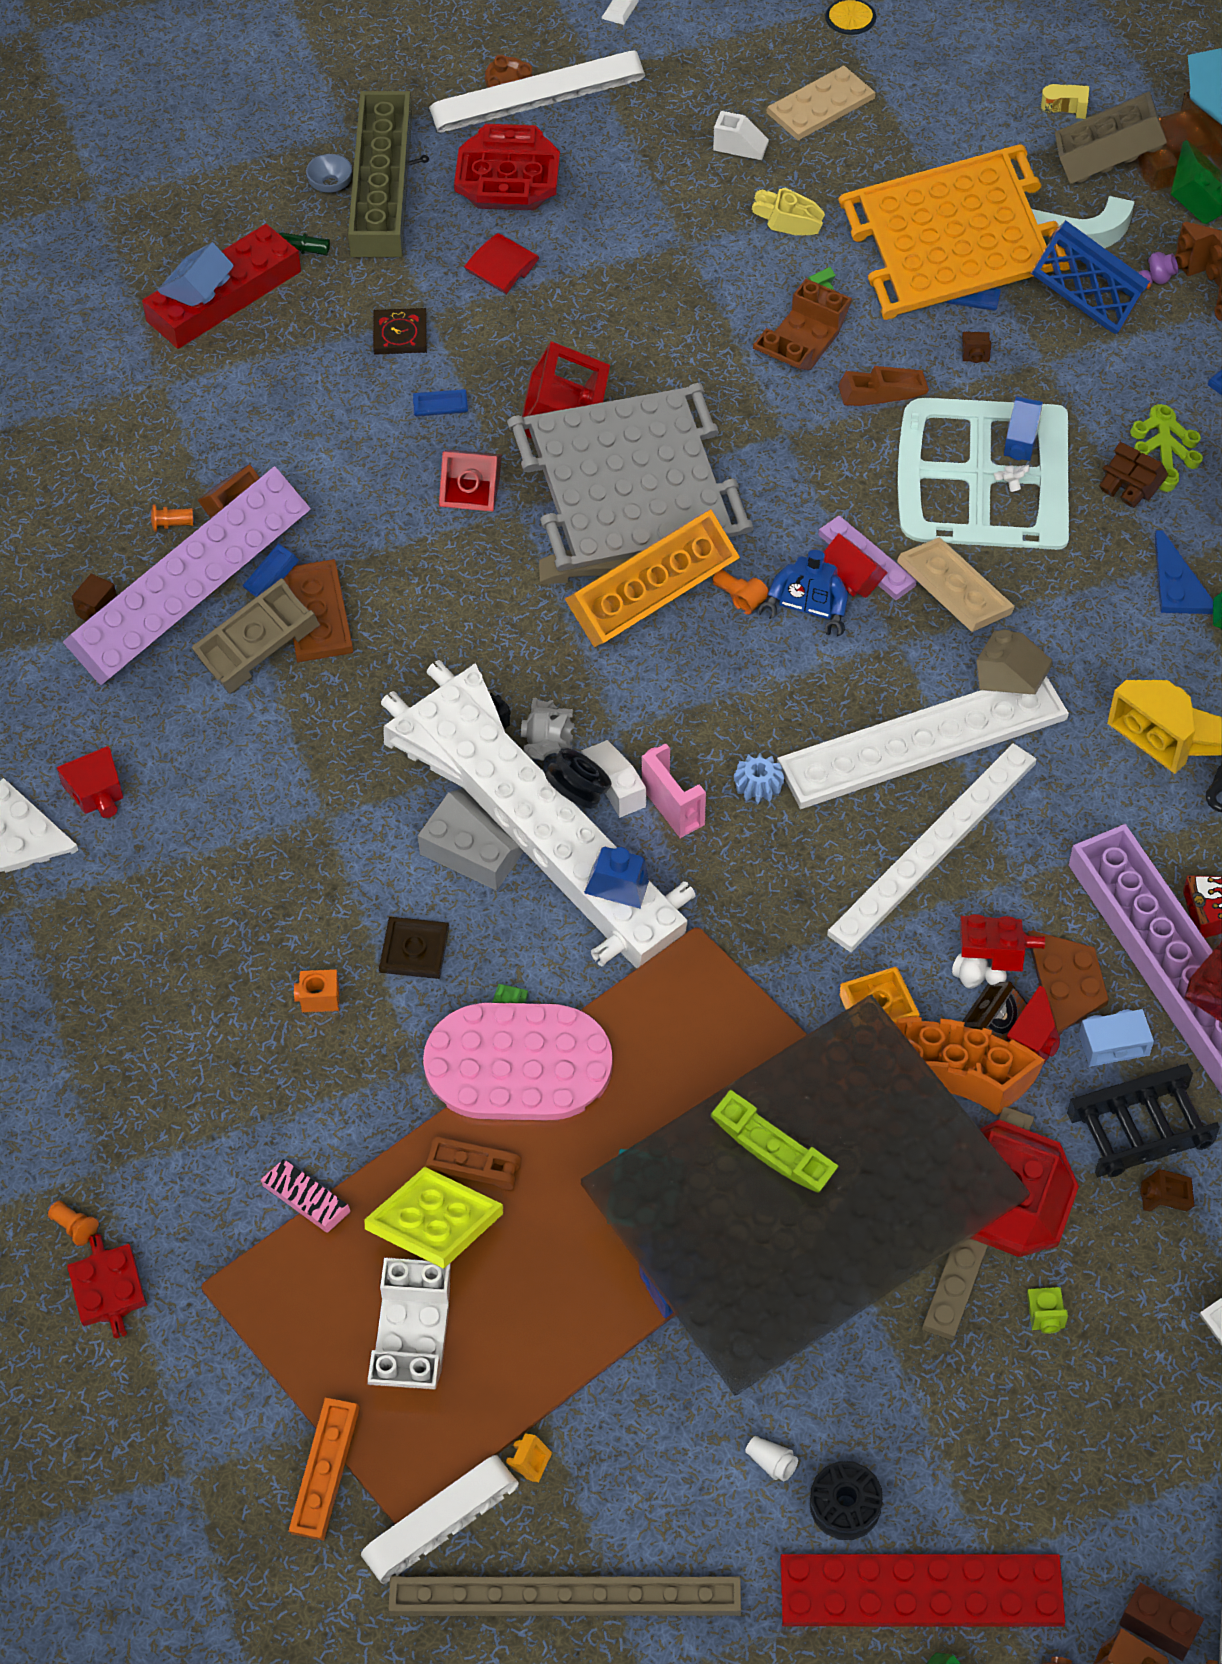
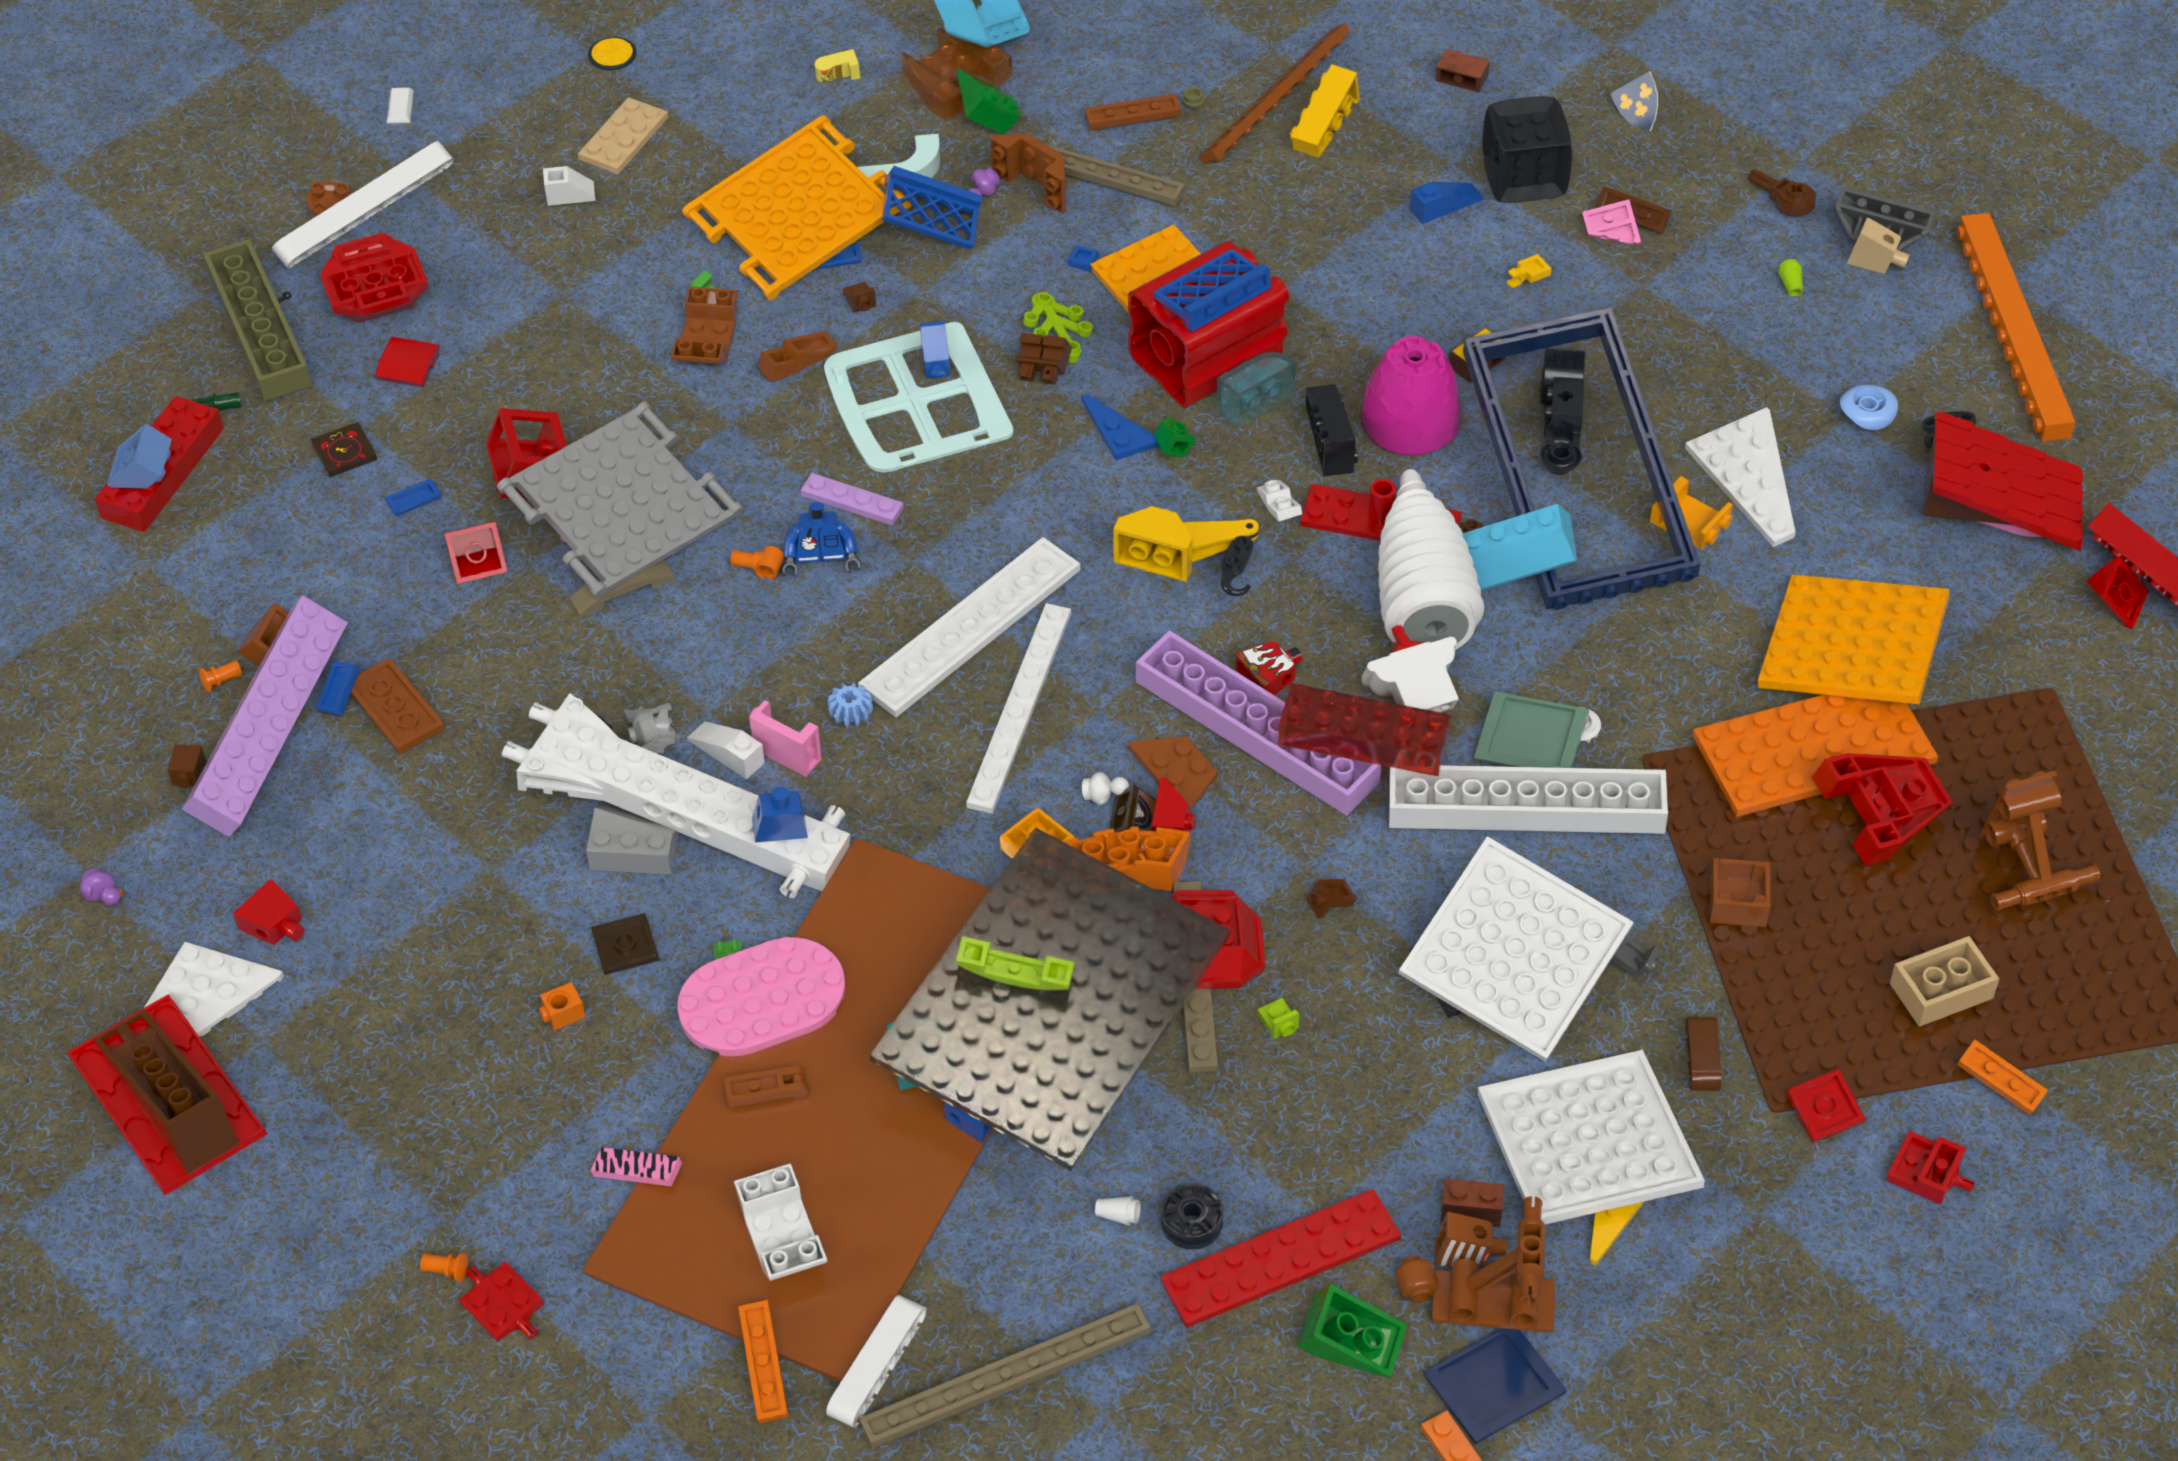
camera: 25 degrees left, 5 degrees down
(254, 635) = (352, 744): dark tan piece -> none
(327, 167) = (204, 329): sand blue piece -> none
(433, 1217) = (757, 1136): neon yellow plate -> none
(530, 1457) = (926, 1286): light orange tile -> none
(578, 778) = (702, 755): black wheel -> none
(652, 578) = (681, 576): light orange brick -> none
(788, 212) = (644, 236): light yellow hinge -> none
(854, 566) = (850, 508): red brick -> none
(955, 584) = (938, 494): tan plate -> none
(997, 940) = (1109, 757): red plate -> none
(1012, 476) = (942, 391): white plant -> none
(1012, 664) = (1017, 540): dark tan slope -> none
(1110, 138) = (893, 86): dark tan slope -> none
(1115, 1037) = (1236, 797): light blue brick -> none
(1144, 1091) = (1280, 828): black fence -> none

